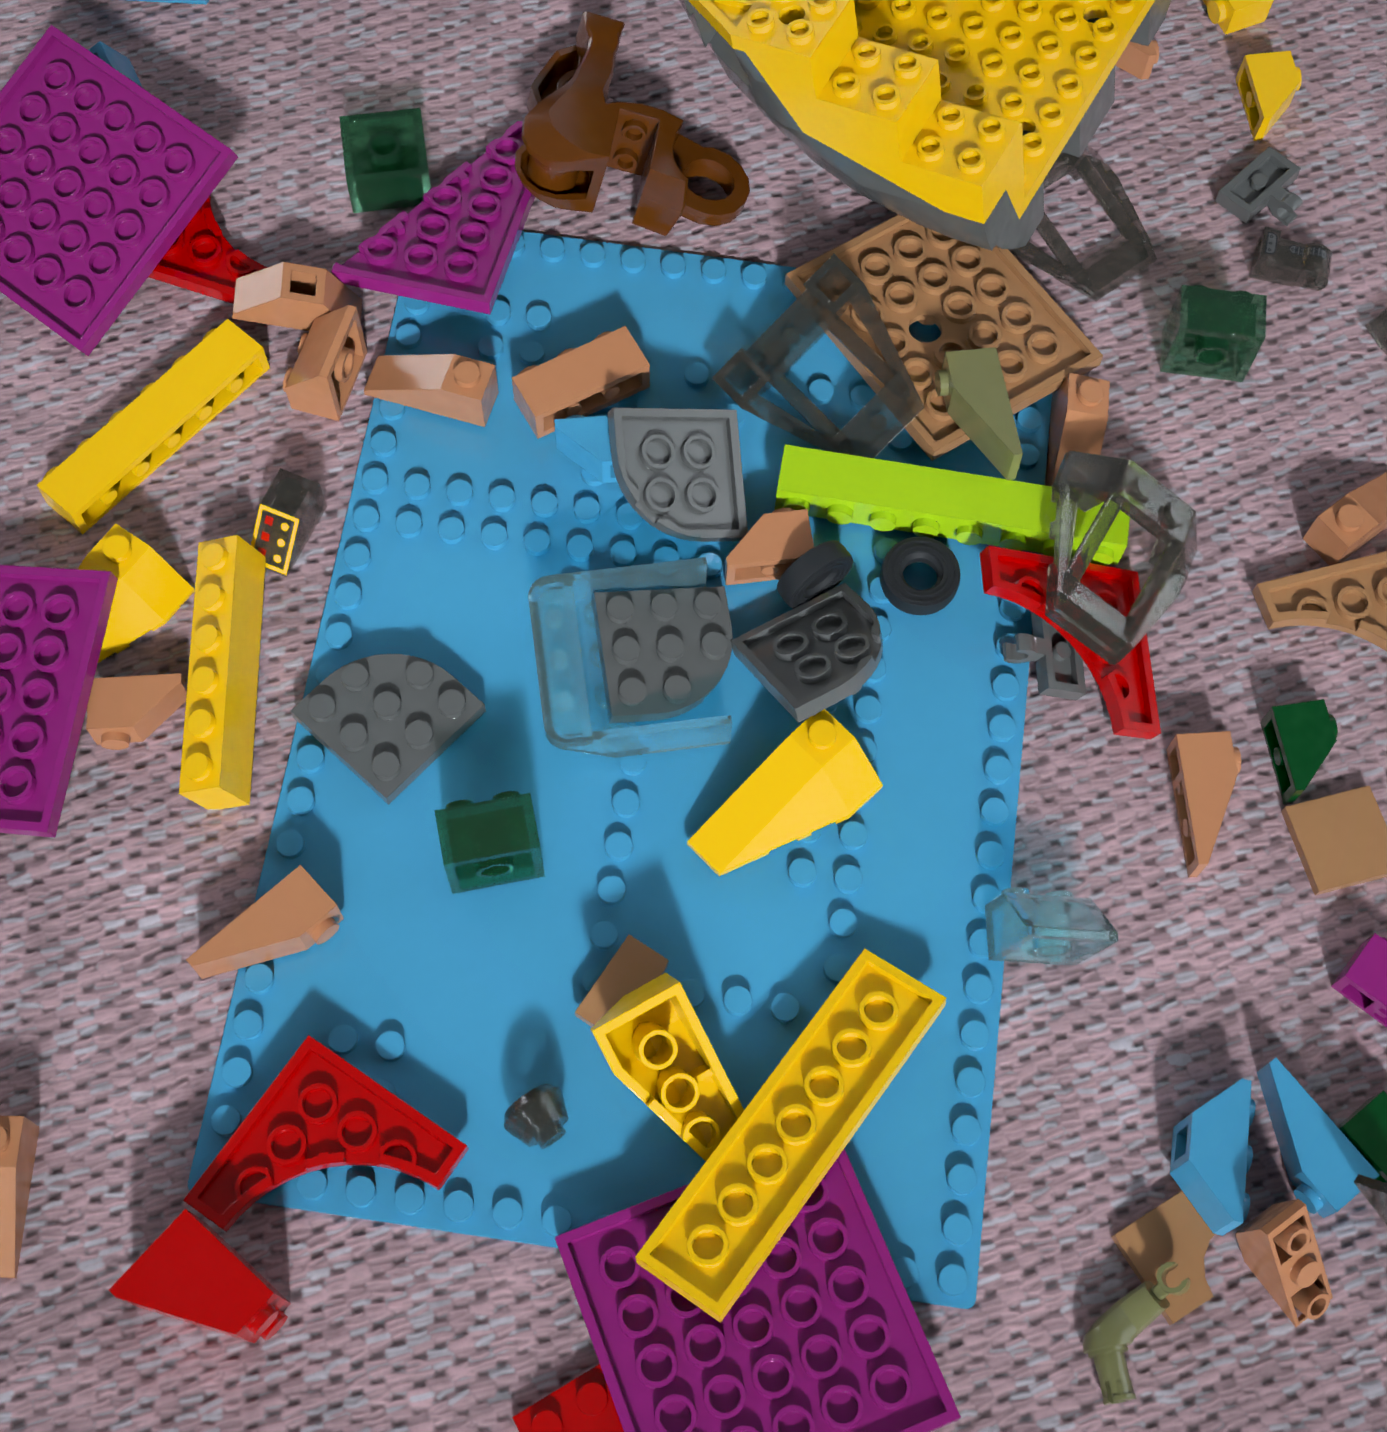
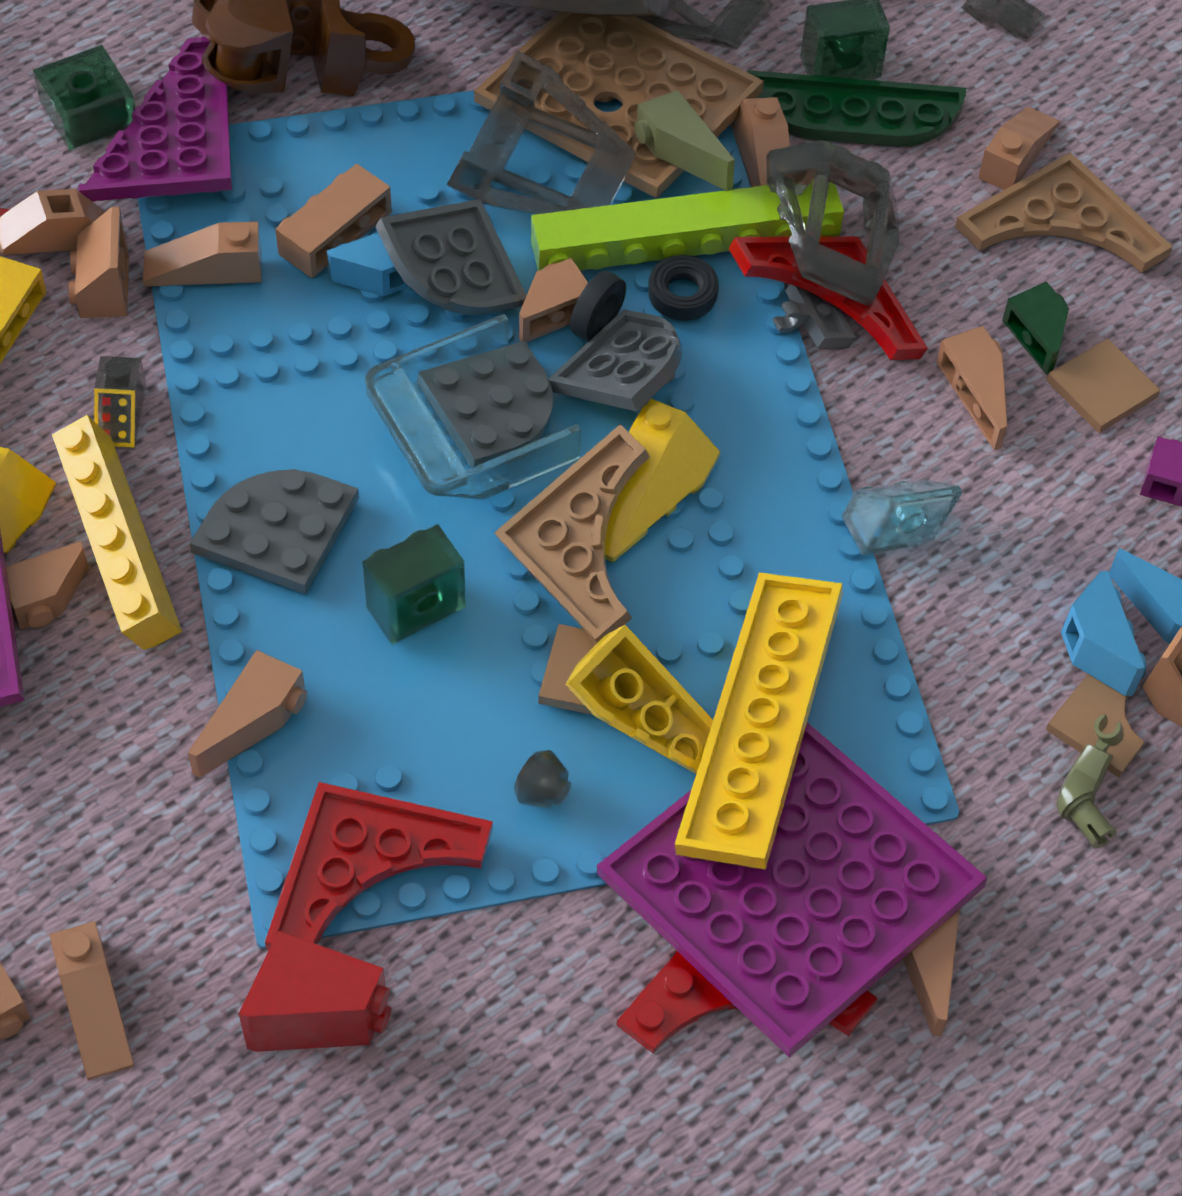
camera: 20 degrees left, 10 degrees down
(670, 836) = (565, 530): none -> medium nougat plate
(1202, 416) = (862, 108): none -> dark green plate

